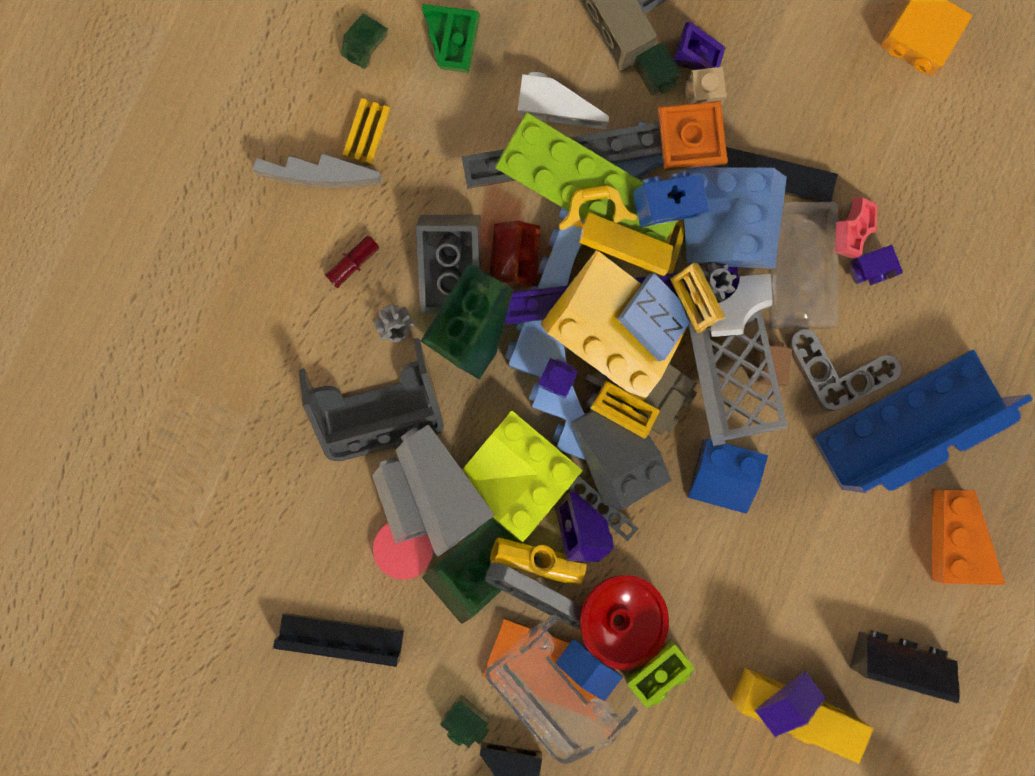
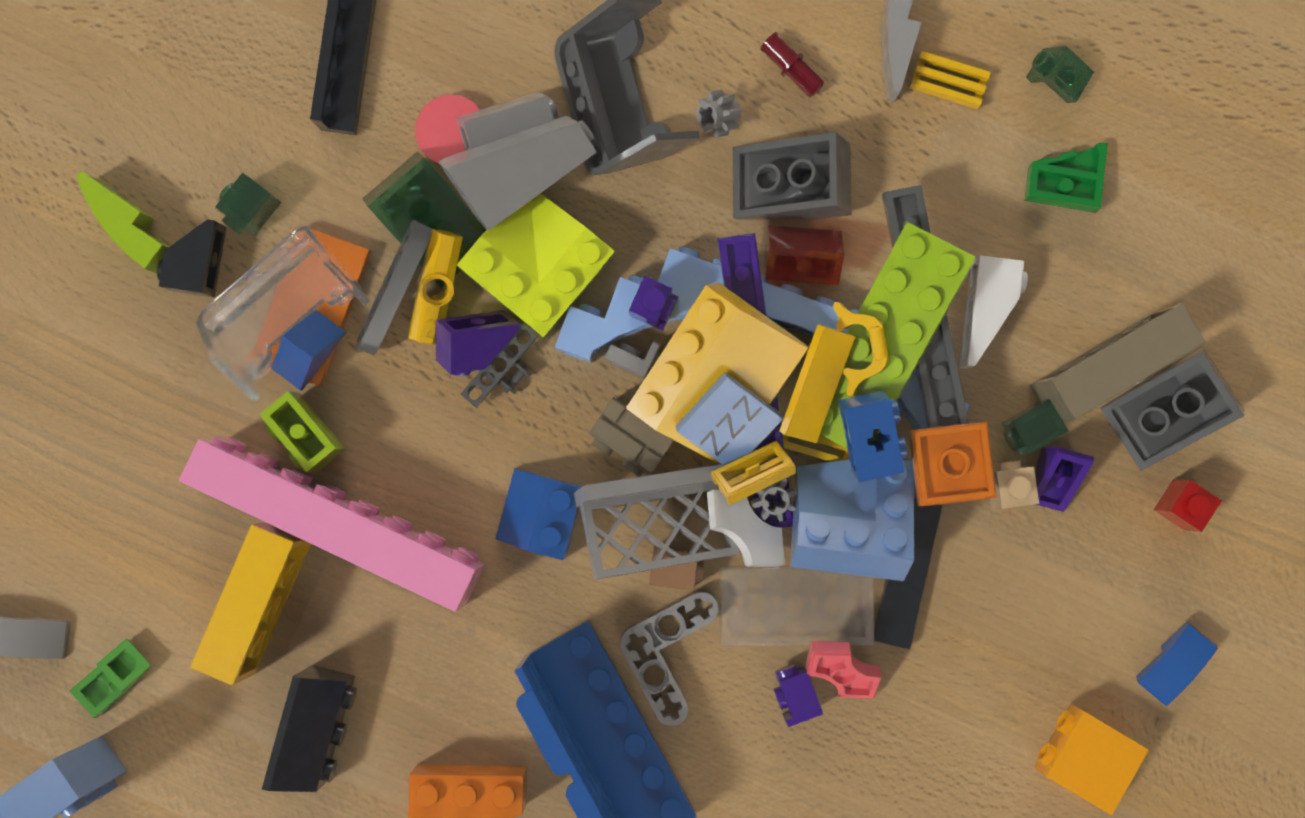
camera: 90 degrees right, 0 degrees up
(470, 322) = (718, 199): clear green slope -> none
(602, 400) = (606, 377): yellow tile -> none
(619, 460) = (564, 381): dark grey slope -> none
(641, 627) = (349, 408): red dish -> none
(735, 646) = (332, 522): none -> bright pink brick
(791, 705) = (258, 584): dark purple slope -> none

